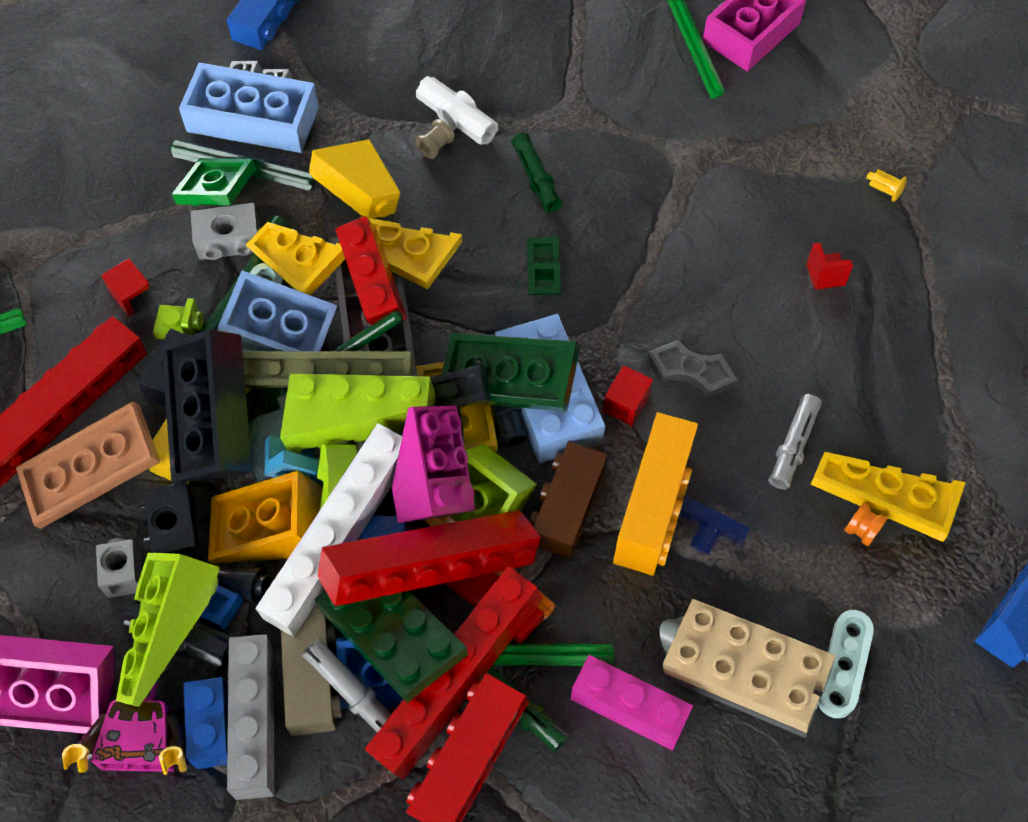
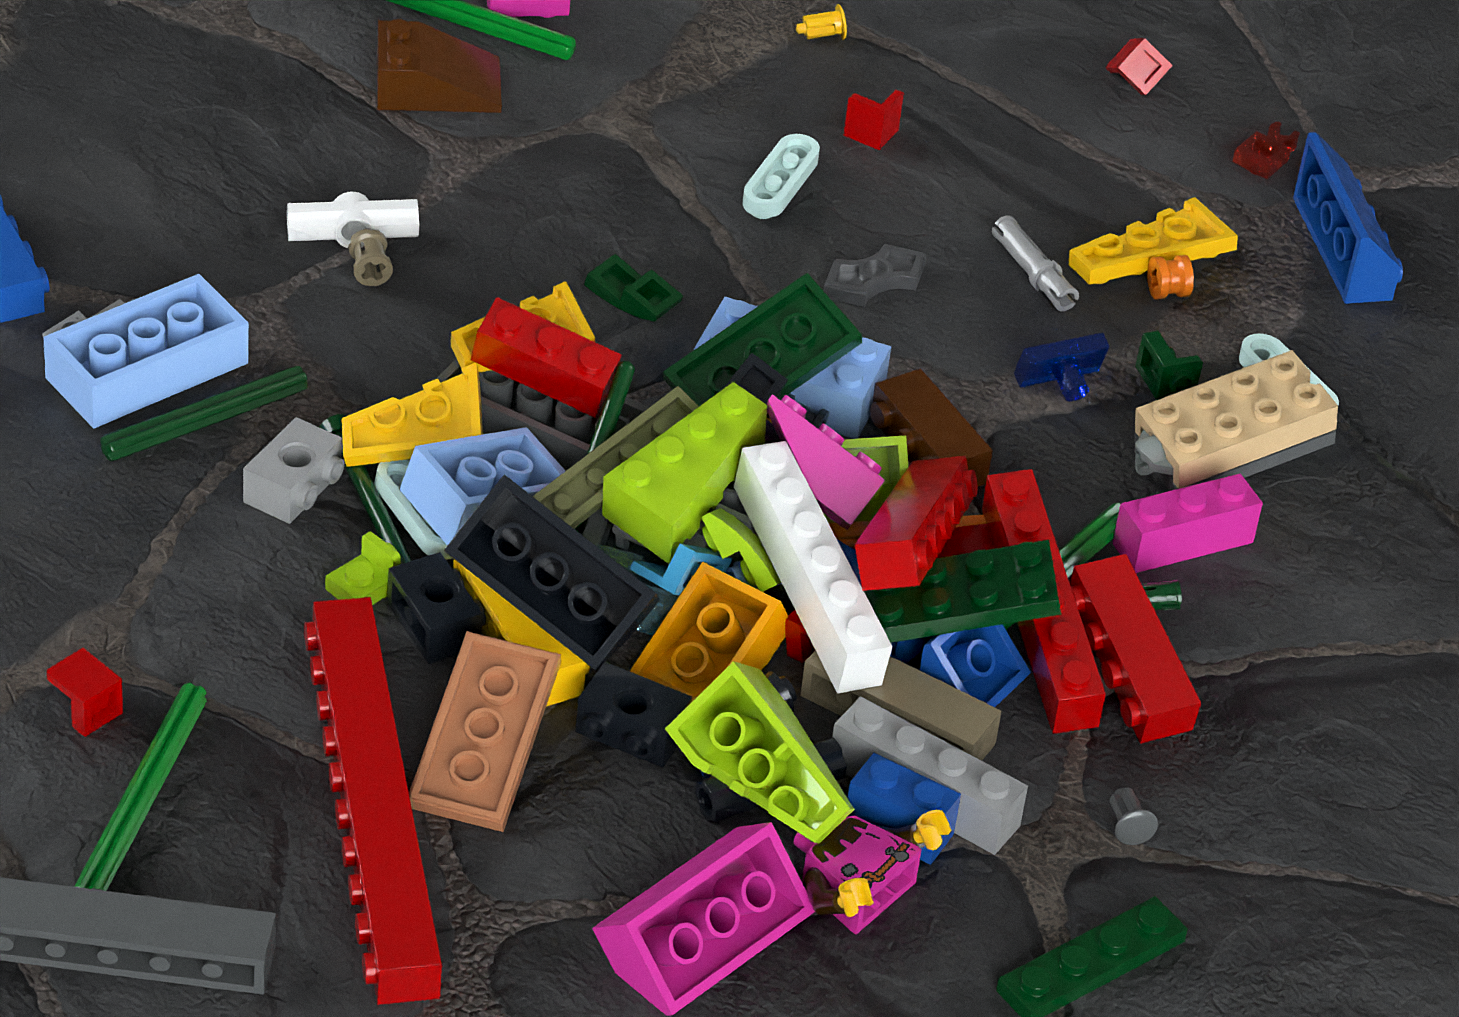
camera: 55 degrees left, 20 degrees down
(120, 581) = (640, 780): light grey brick -> none
(125, 283) = (273, 583): red panel -> none
(214, 182) = (217, 435): green plate -> none
(356, 177) = (359, 334): yellow slope -> none
(361, 699) = (993, 684): light grey pin -> none
(540, 181) = (555, 231): dark green pin -> none
(620, 52) = (433, 71): none -> reddish brown slope
(627, 395) = (867, 315): red panel -> none
(656, 496) = (999, 366): light orange brick -> none
(731, 254) = (780, 176): none -> light aqua plate
(768, 590) = (1162, 369): none -> dark green bracket

